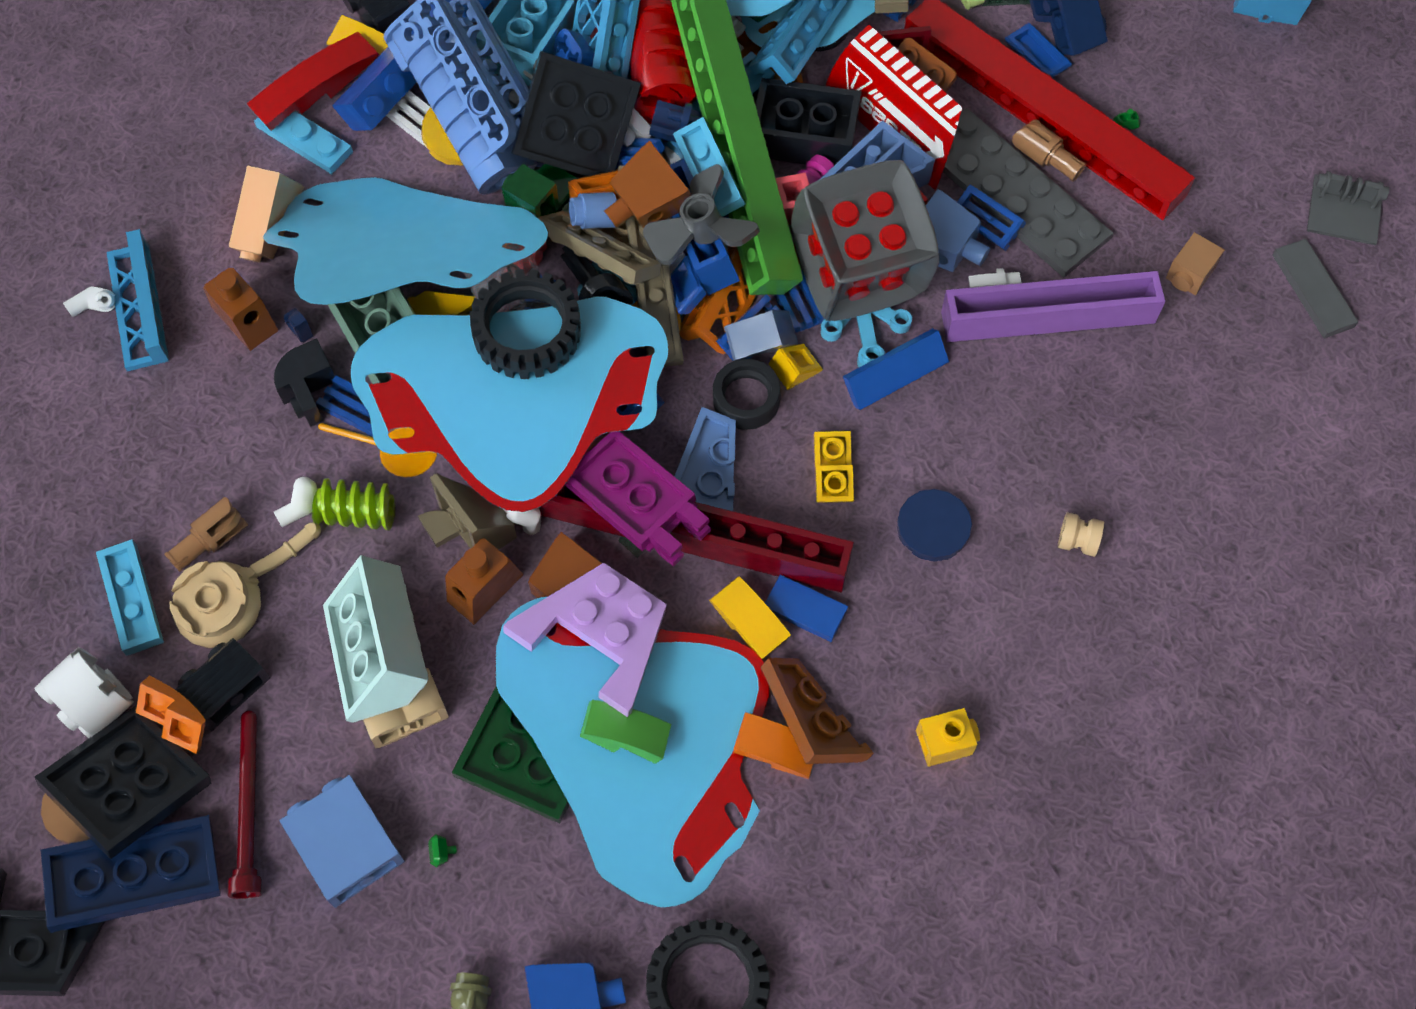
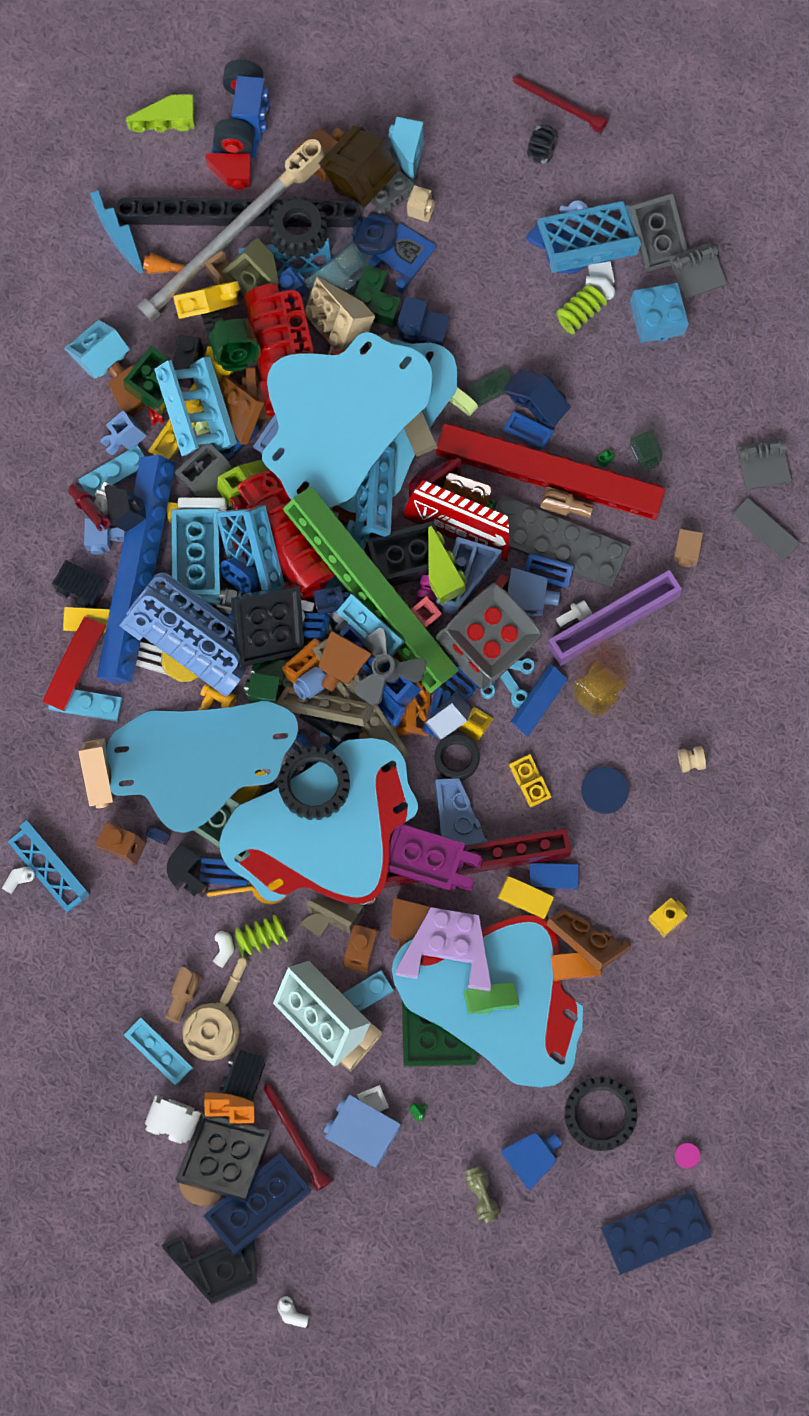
camera: 20 degrees left, 10 degrees up
(386, 803) = (374, 1098): none -> white tile
(458, 648) = (368, 991): none -> medium azure plate
(465, 187) = (211, 694): none -> light orange piece
(841, 138) = (443, 575): none -> lime slope
(987, 384) = (598, 689): none -> clear yellow brick
(1187, 128) = (646, 450): none -> clear green brick

